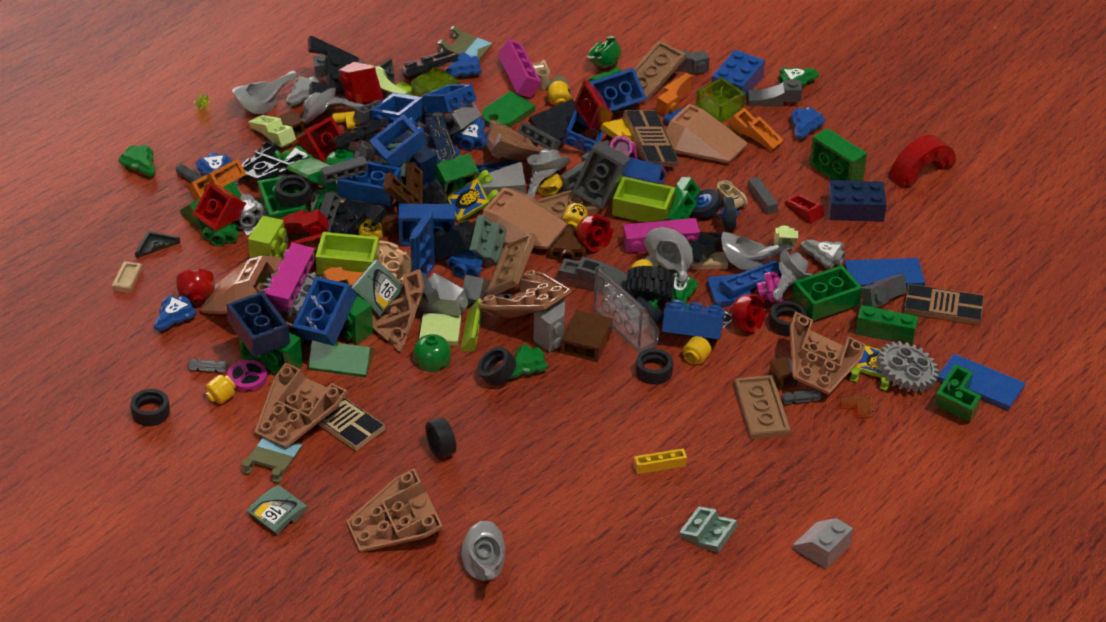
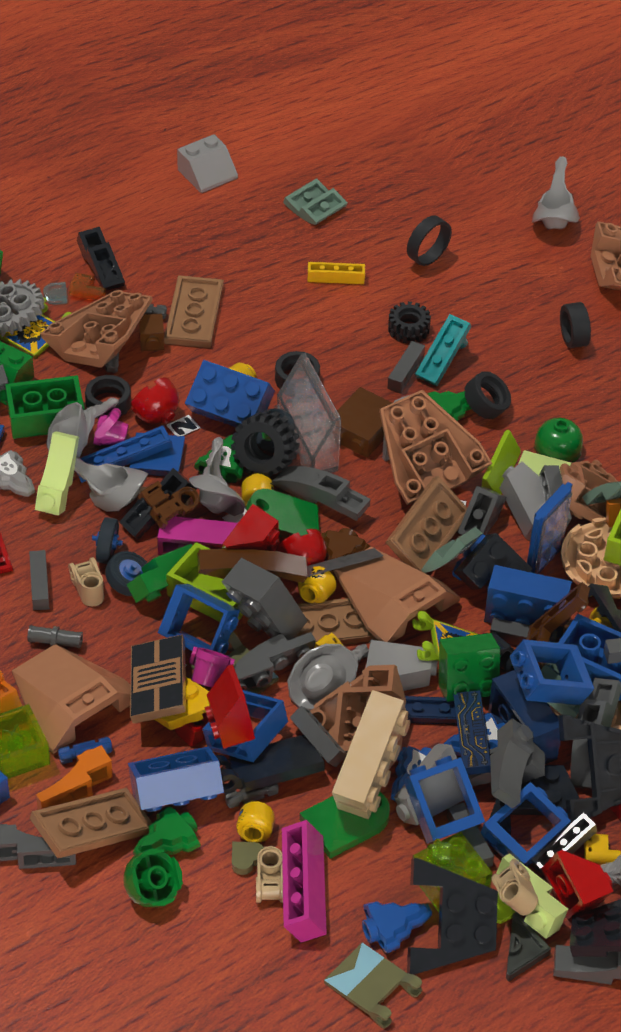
camera: 165 degrees left, 5 degrees up
(396, 71) = (516, 888): none -> tan piece
(415, 108) = (509, 761): none -> dark grey slope
(444, 70) = (438, 852): none -> clear neon green plate
(499, 103) = (370, 755): none -> tan piece
(540, 398) = (443, 349): none -> teal piece
(565, 221) = (345, 561): none -> flat silver sticker
(570, 390) = (406, 367): none -> dark grey piece
(578, 434) = (409, 313): none -> black tyre
(581, 483) = (419, 234): none -> black tyre
(617, 249) = (291, 512): none -> green tile
(623, 187) = (221, 561): none -> reddish brown slope
(626, 206) = (254, 531): none -> red slope
(697, 224) = (166, 506): none -> reddish brown piece
(731, 164) = (55, 636): none -> dark grey pin
(863, 426) = (100, 258): none -> black slope
(880, 399) = (55, 293): none -> clear light blue tile

